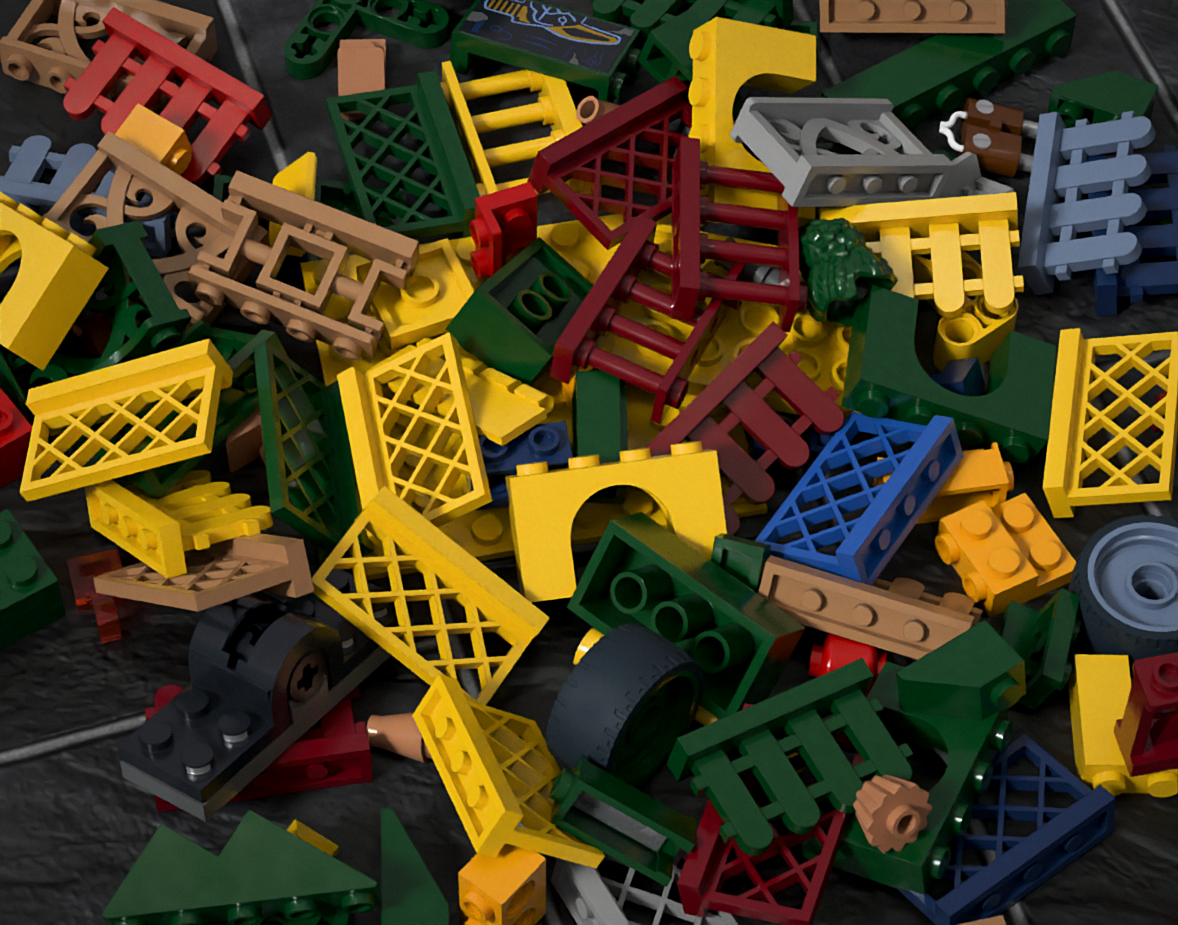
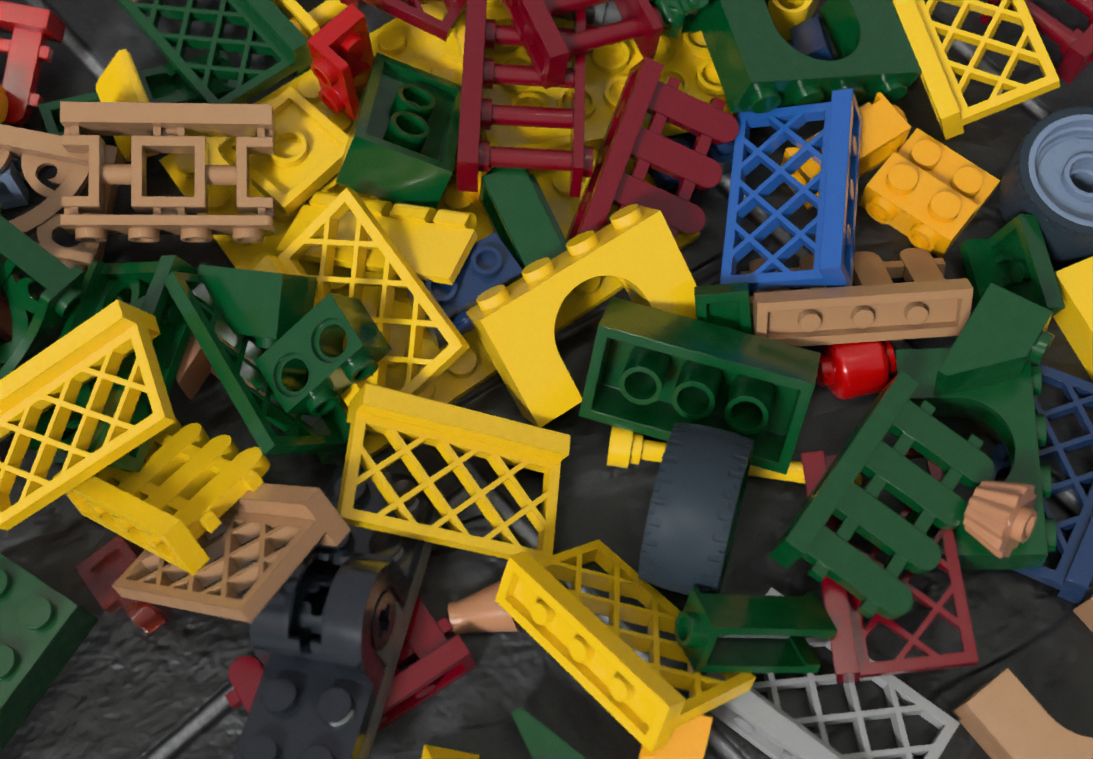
camera: 20 degrees left, 15 degrees up
(331, 400) = (259, 301): none -> dark green slope
(359, 458) = (317, 347): none -> dark green brick

